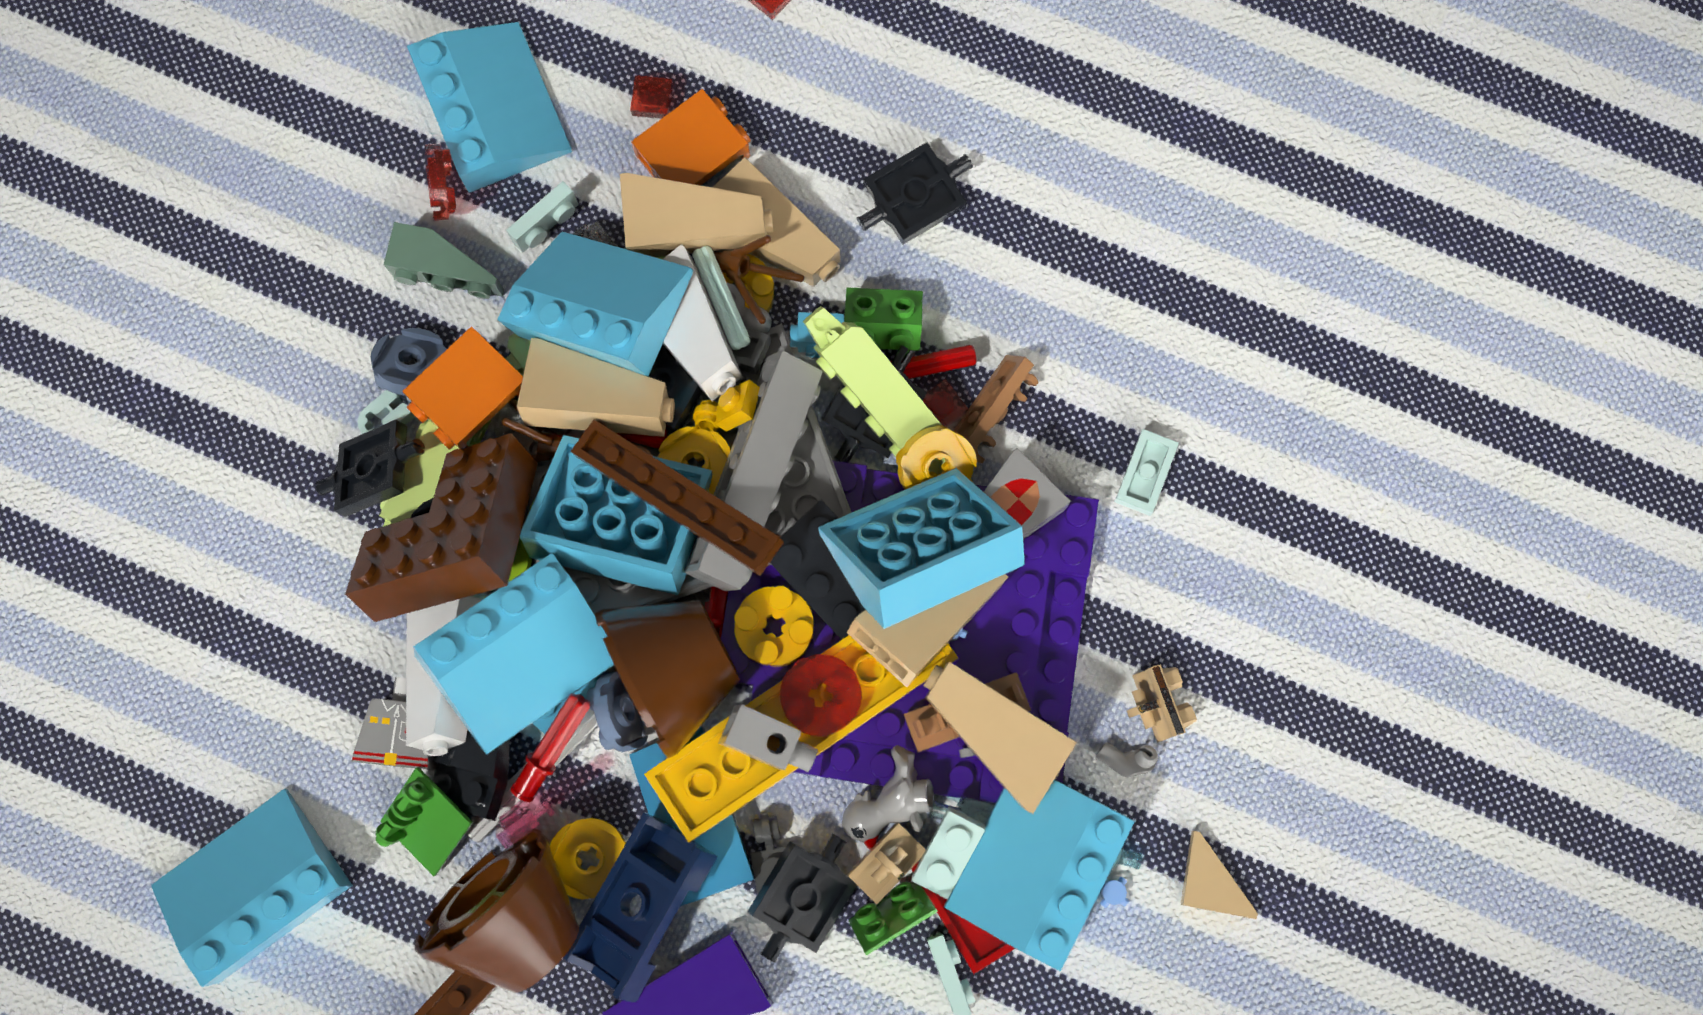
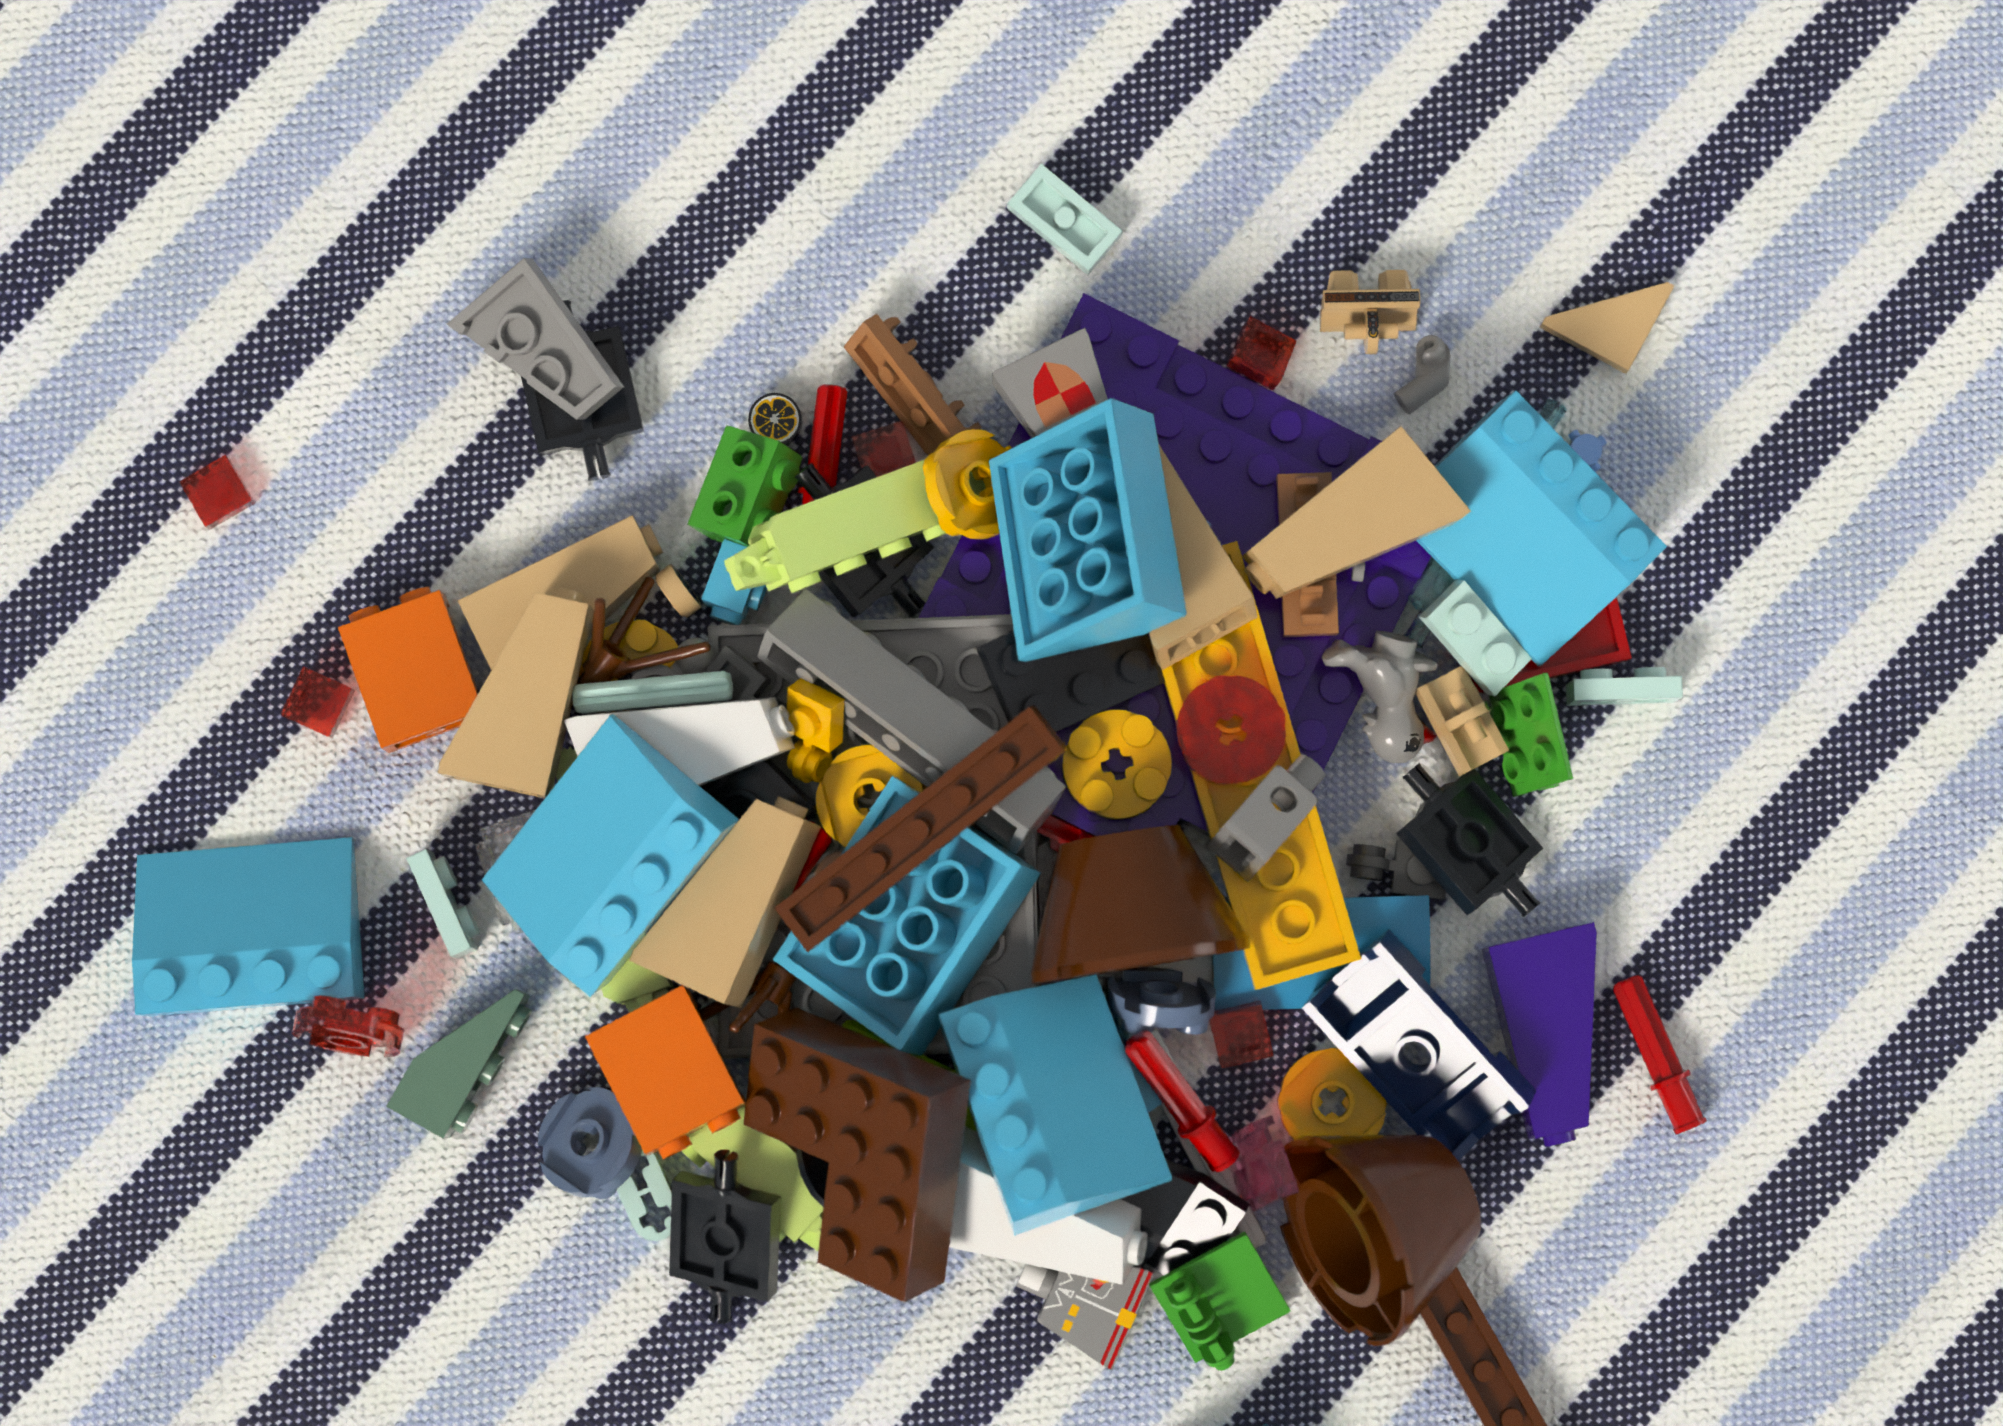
camera: 75 degrees left, 5 degrees up
(616, 778) = (1241, 1034): none -> clear red plate
(801, 298) = (677, 591): none -> tan tile
(939, 326) = (776, 418): none -> black tile
(940, 148) = (537, 336): none -> light grey wing
(1101, 637) = (1261, 353): none -> clear red plate

